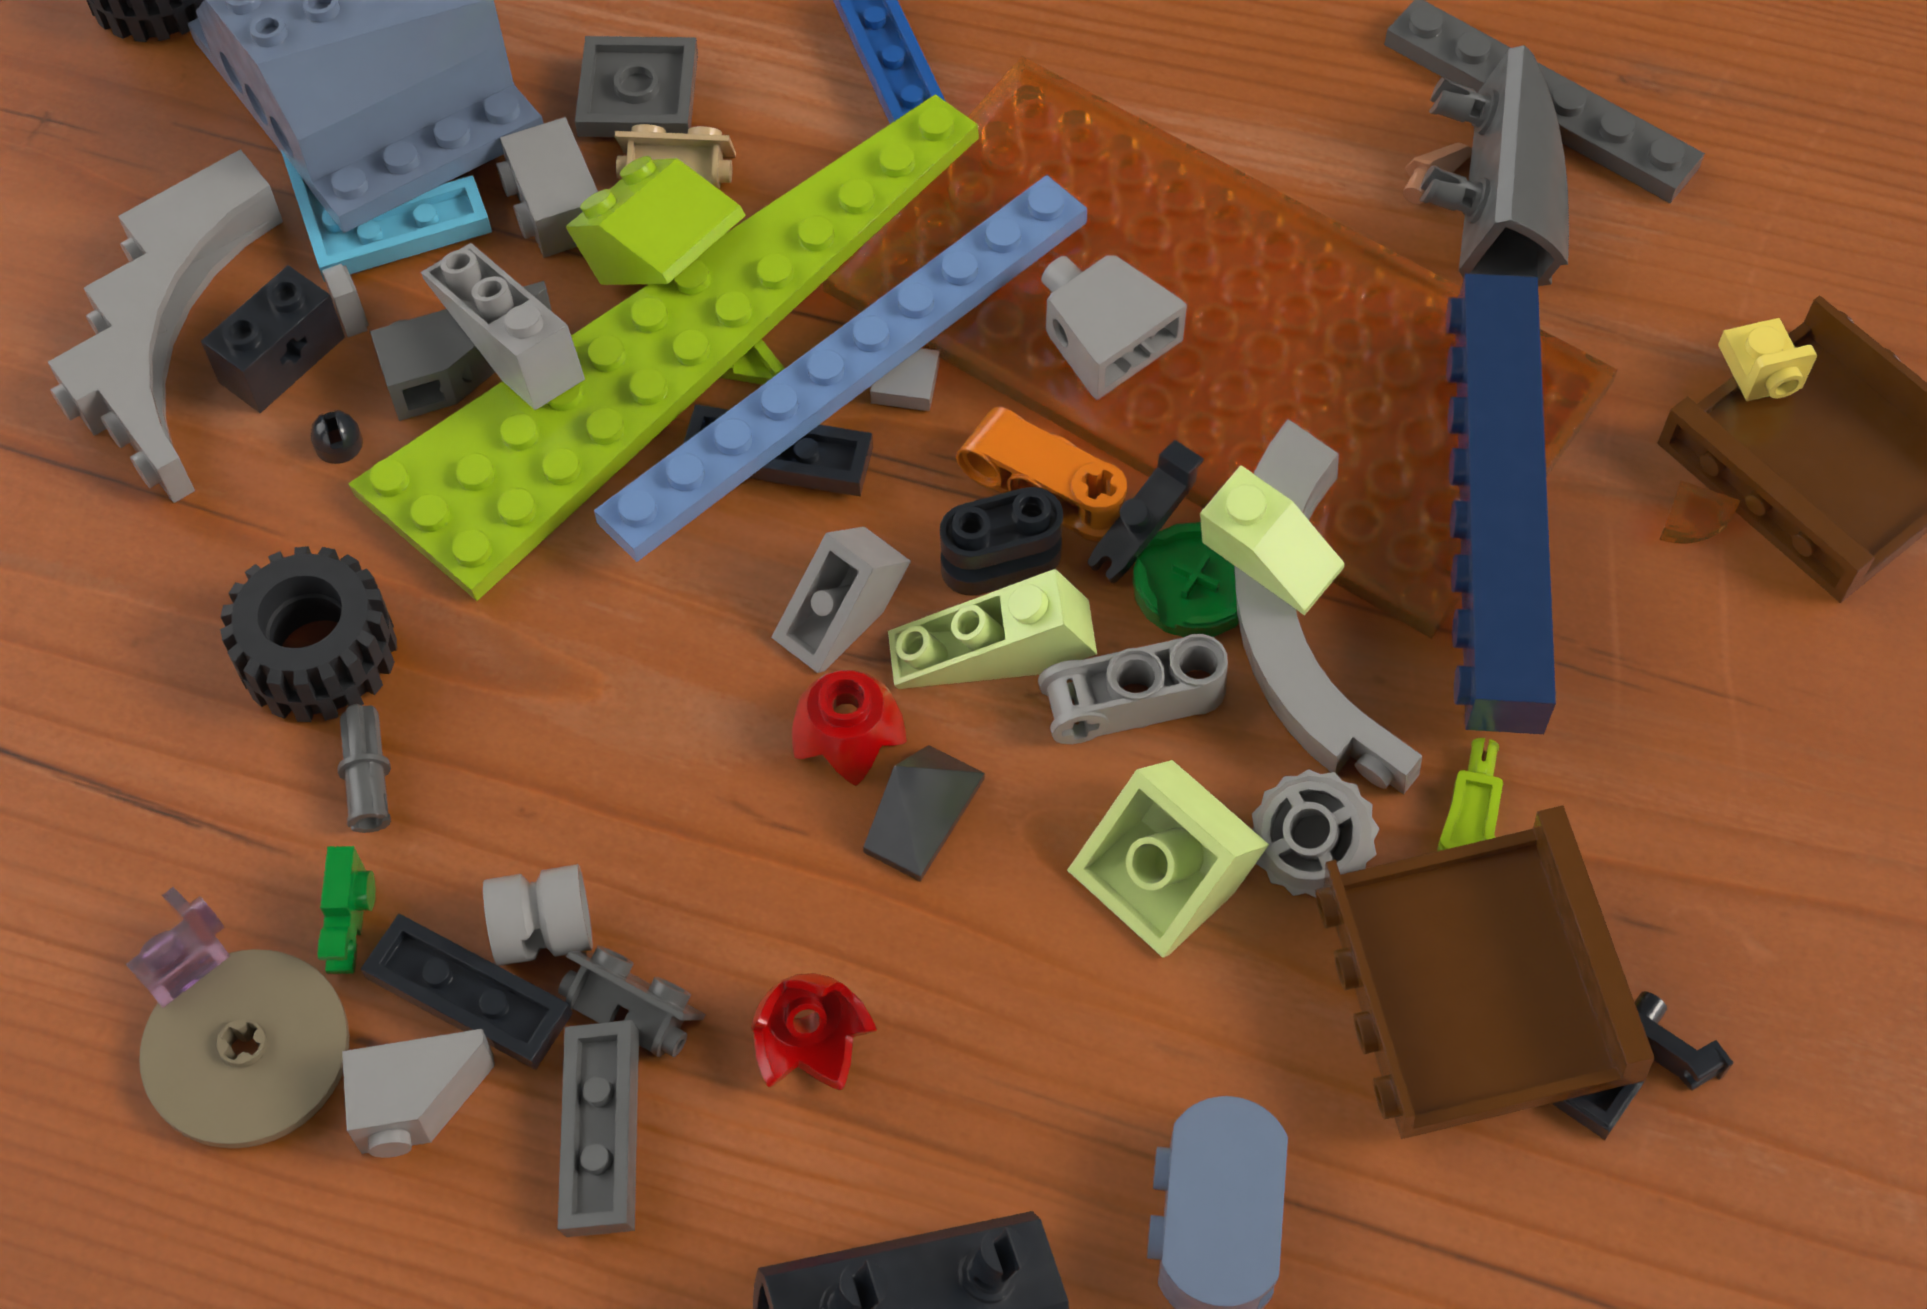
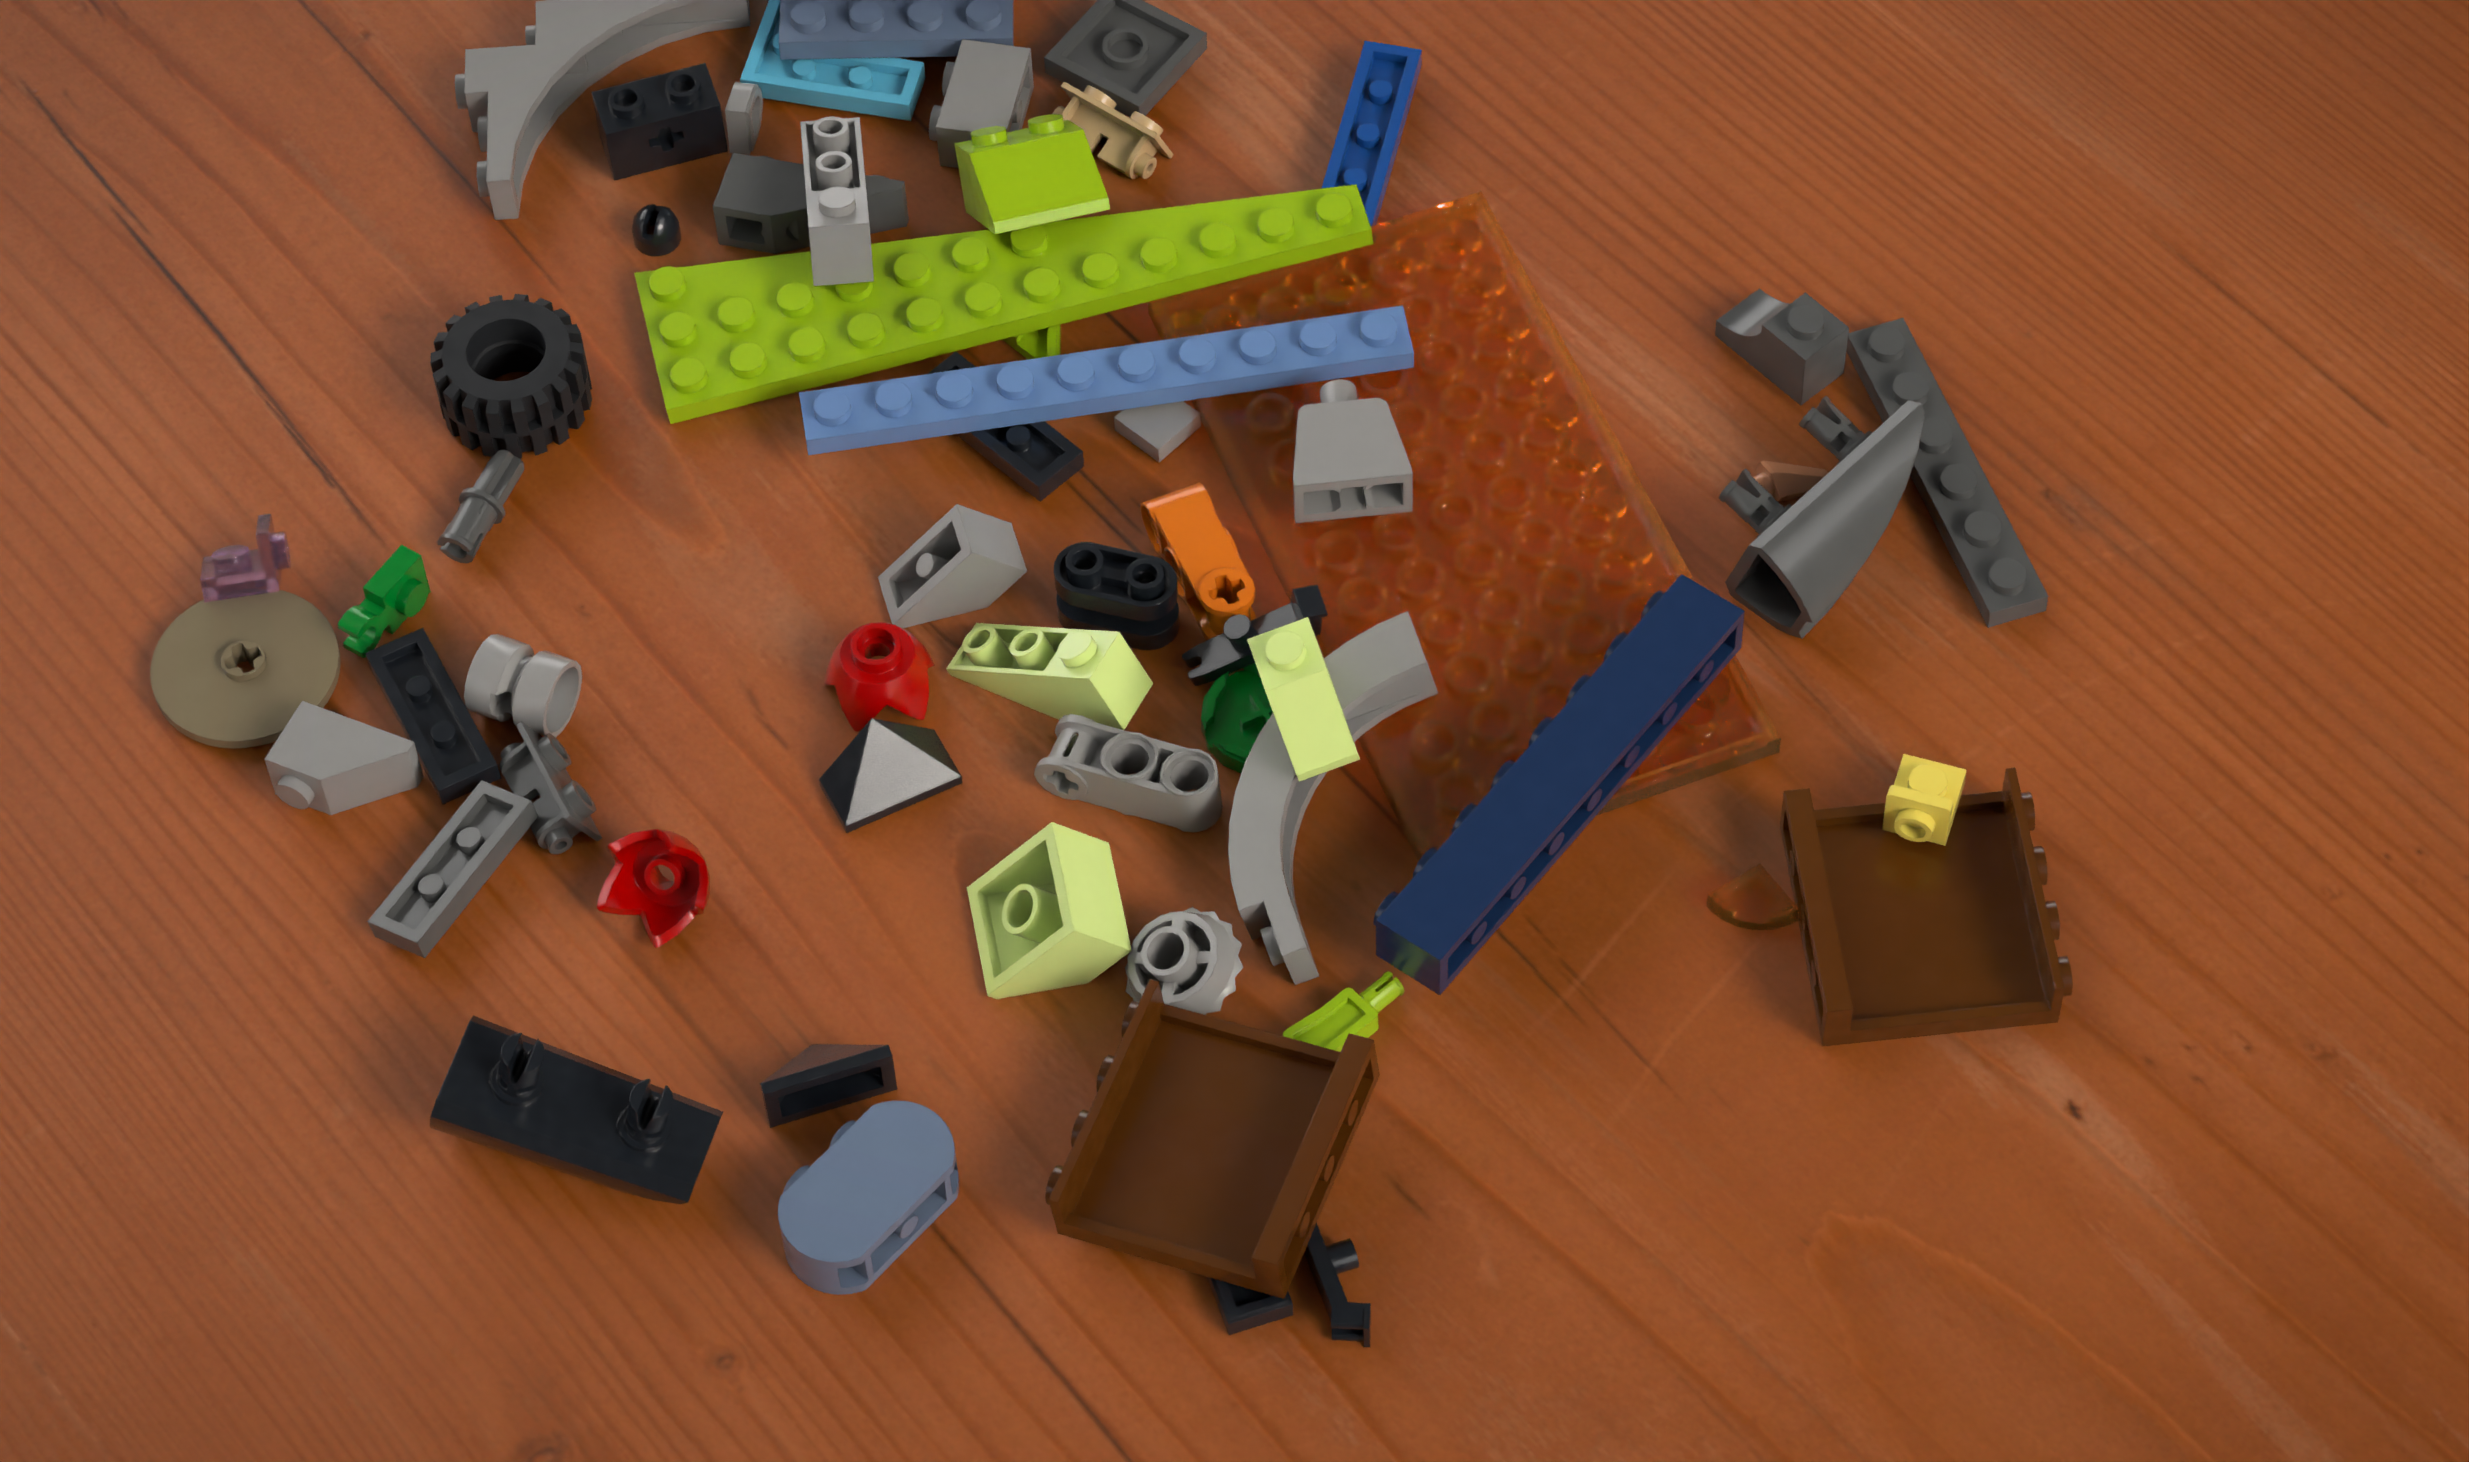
camera: 35 degrees right, 5 degrees down
(1089, 1115) = (827, 1079): none -> black slope
(1349, 58) = (1791, 344): none -> dark grey arch

